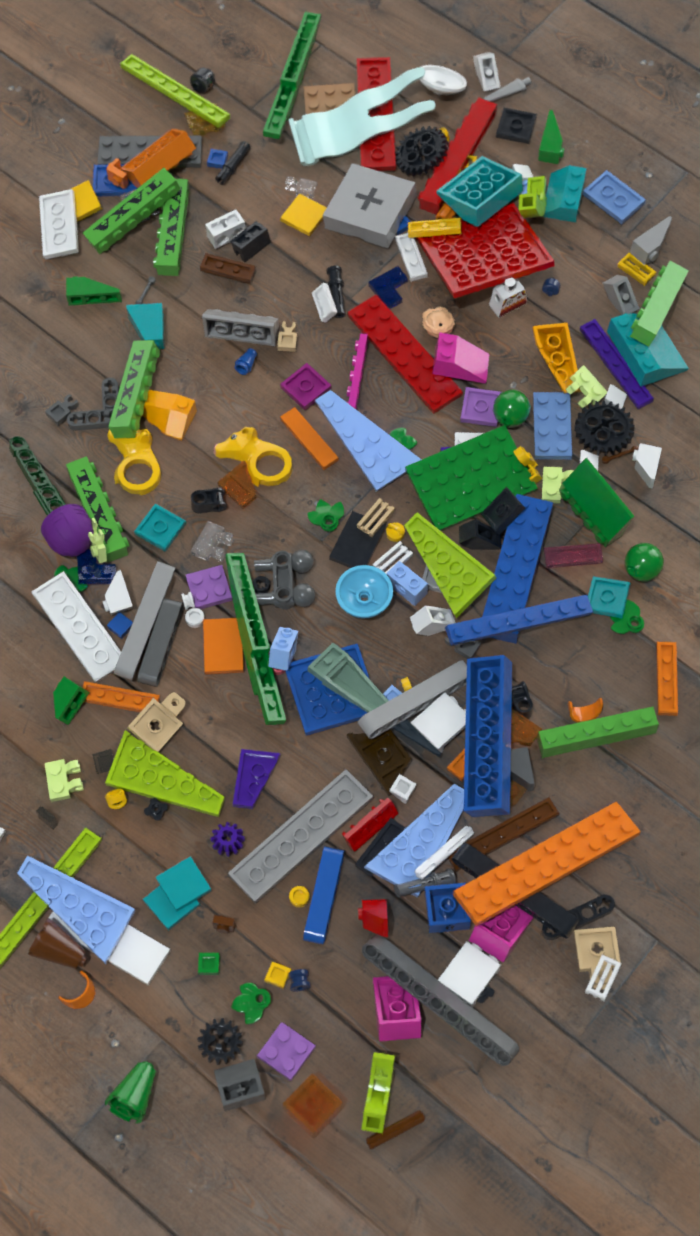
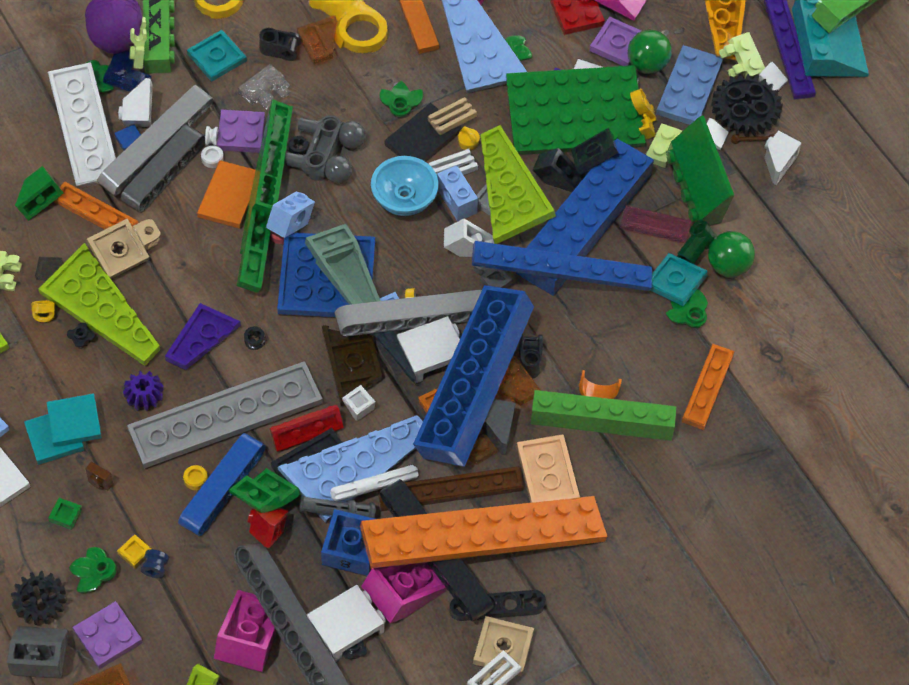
camera: 15 degrees right, 5 degrees down
(297, 768) = (252, 343): none -> black bush
(362, 890) = (265, 491): none -> green slope
(572, 792) = (547, 469): none -> light nougat plate
(614, 557) = (698, 242): none -> dark green piece

